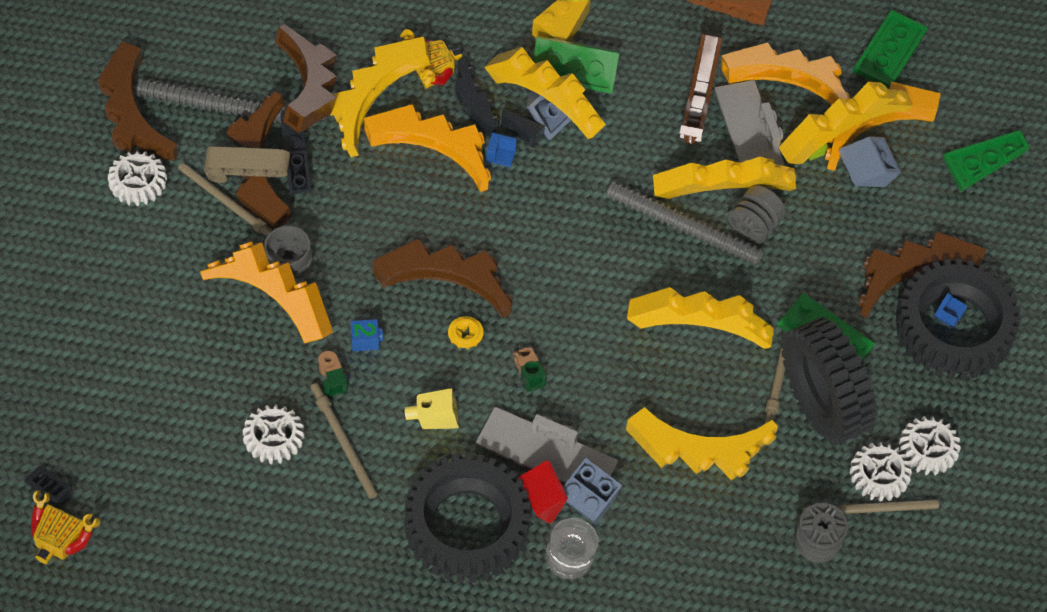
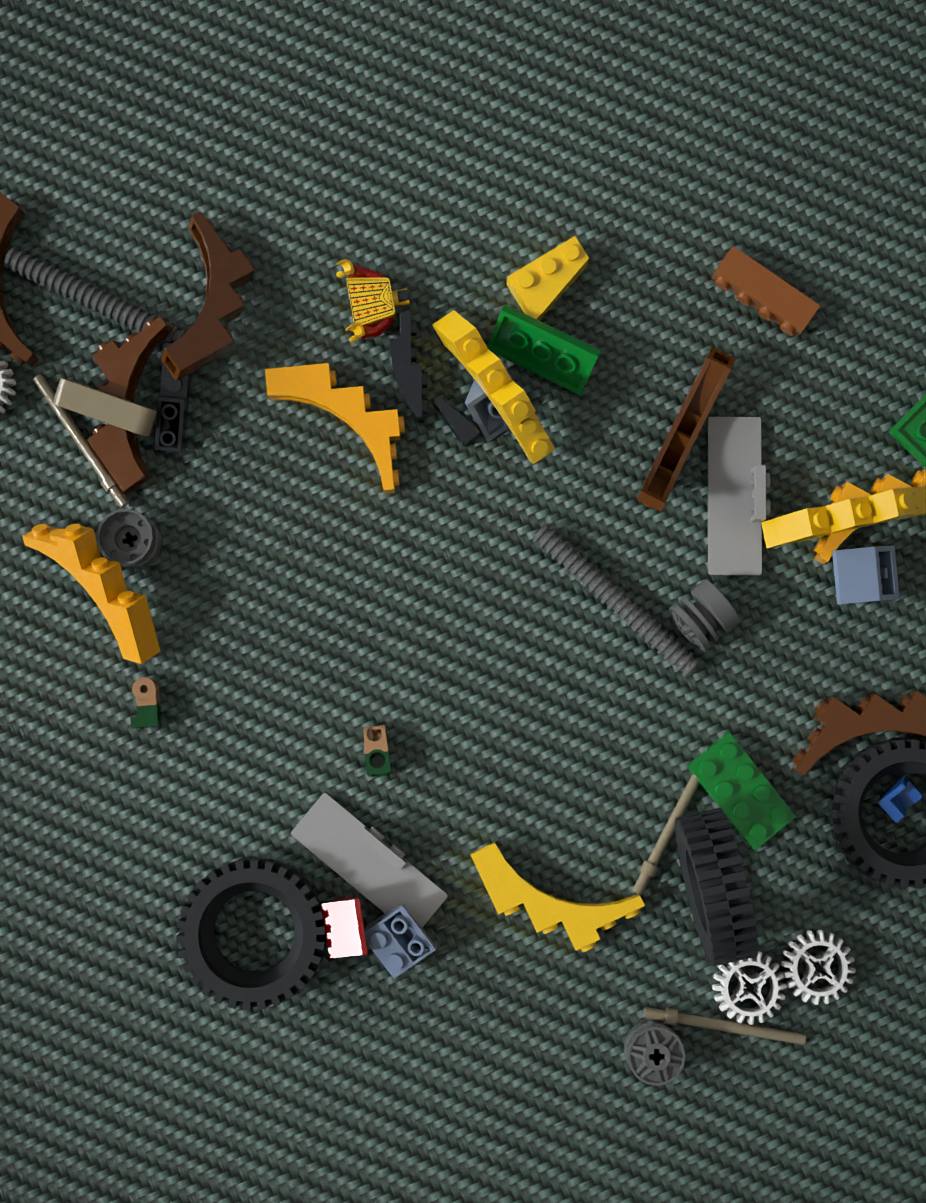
camera: 20 degrees right, 25 degrees up
(271, 422) = (53, 760): white gear -> none
(325, 405) = (129, 740): dark tan bar -> none
(365, 335) = (197, 663): blue brick -> none
(368, 83) = (281, 321): yellow arch -> none
(415, 262) = (279, 578): reddish brown arch -> none
(435, 410) = (258, 786): light yellow torso -> none
(461, 325) = (303, 686): yellow gear -> none
(501, 150) = (422, 447): blue panel -> none
(575, 537) = (360, 1019): clear wheel -> none
(700, 309) = (595, 740): yellow arch -> none
(723, 175) = (679, 563): yellow arch -> none
(791, 67) = (812, 415): light orange arch -> none

